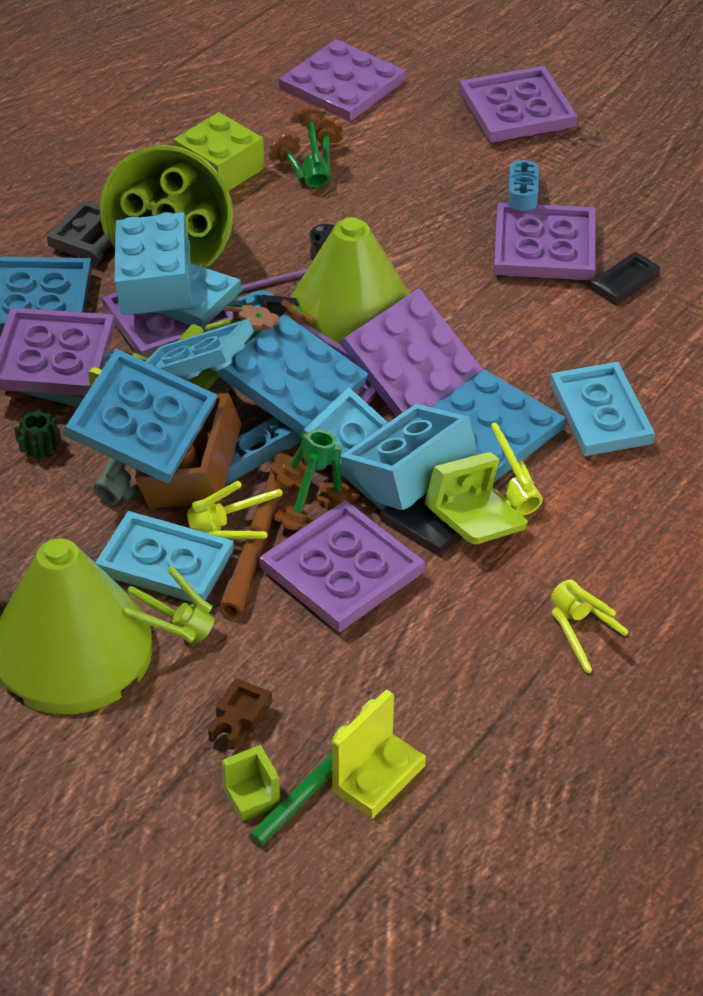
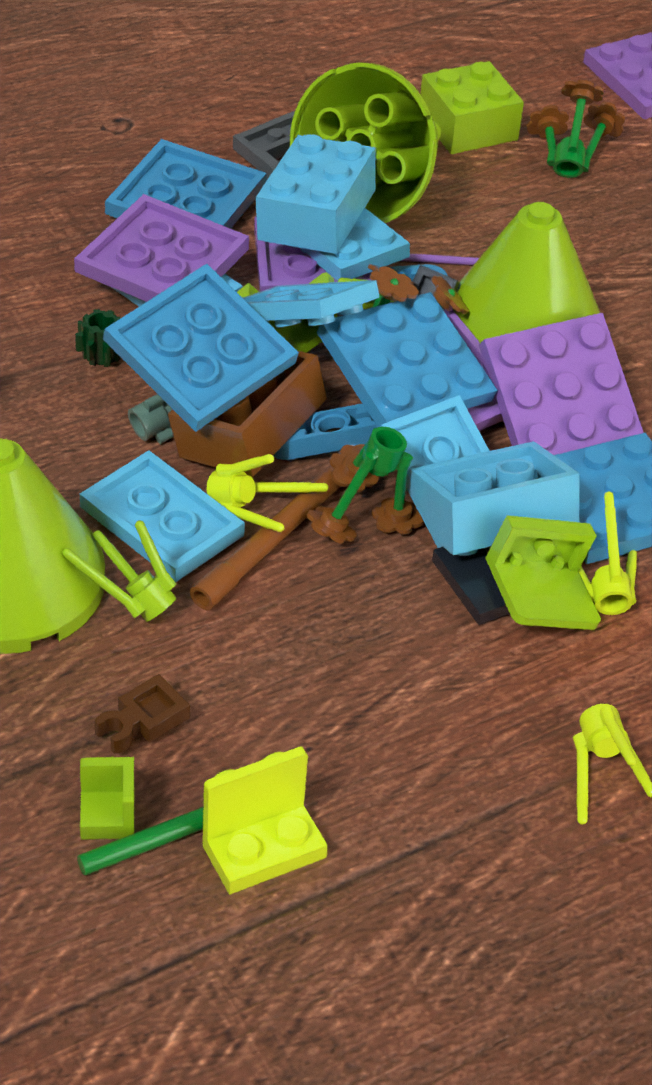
camera: 20 degrees right, 0 degrees up
(342, 565) = (355, 594): medium lavender plate -> none

